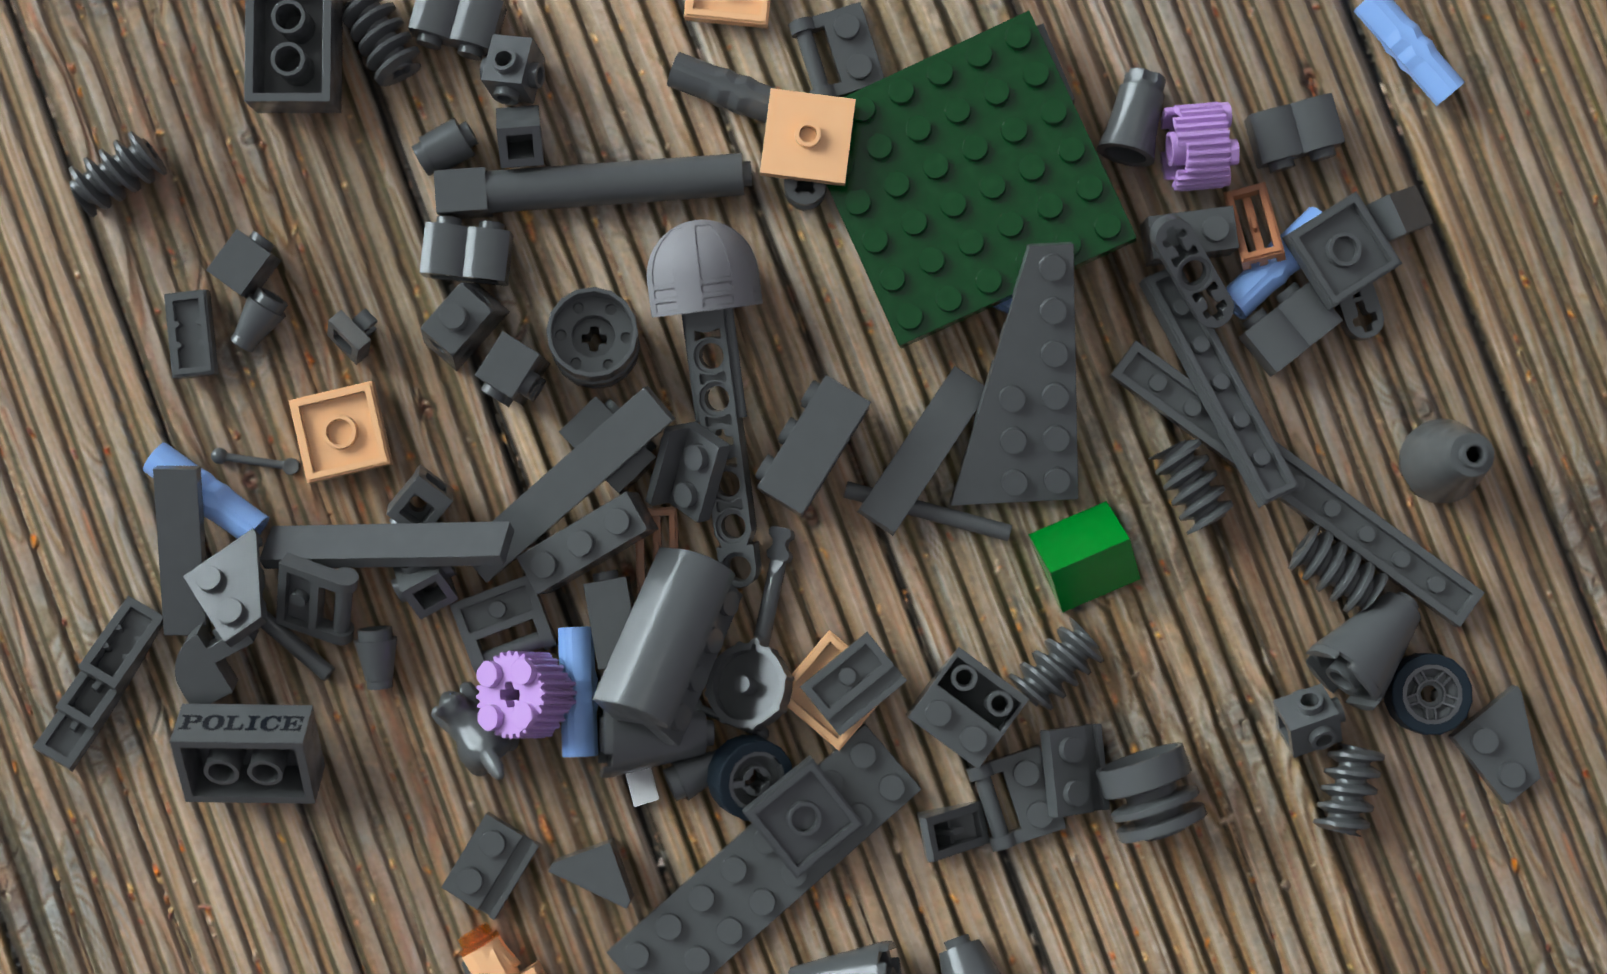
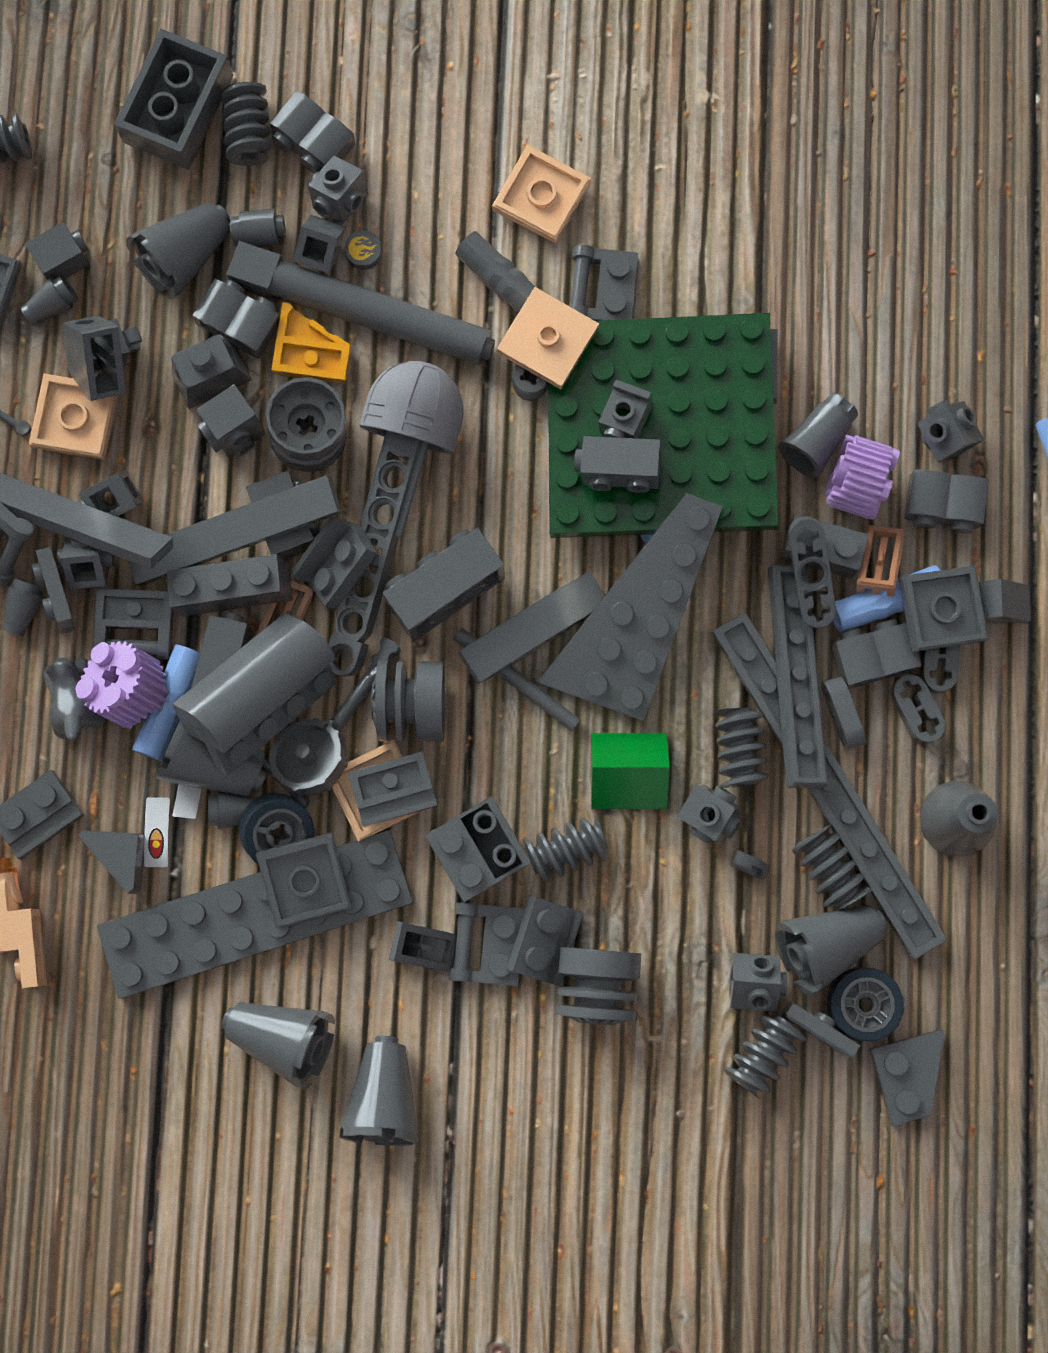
camera: 20 degrees right, 5 degrees down
(333, 347) = (91, 349): none -> dark grey torso
(371, 202) = (179, 246): none -> dark grey cone
(416, 641) = (56, 605): none -> dark grey plate
(557, 254) = (308, 349): none -> light orange wing
(566, 121) = (363, 250): none -> dark grey tile
(623, 829) = (156, 832): none -> white sticker
(831, 584) = (409, 701): none -> dark grey wheel
(926, 168) = (628, 399): none -> dark grey brick
(944, 242) = (619, 463): none -> dark grey brick
(1178, 576) = (698, 813): none -> dark grey brick
(1249, 601) = (749, 865): none -> dark grey tile
(1268, 55) = (950, 430): none -> dark grey brick
(1281, 402) = (843, 713): none -> dark grey beam
(1361, 357) = (926, 705): none -> dark grey beam
(1394, 737) = (822, 1028): none -> dark grey plate

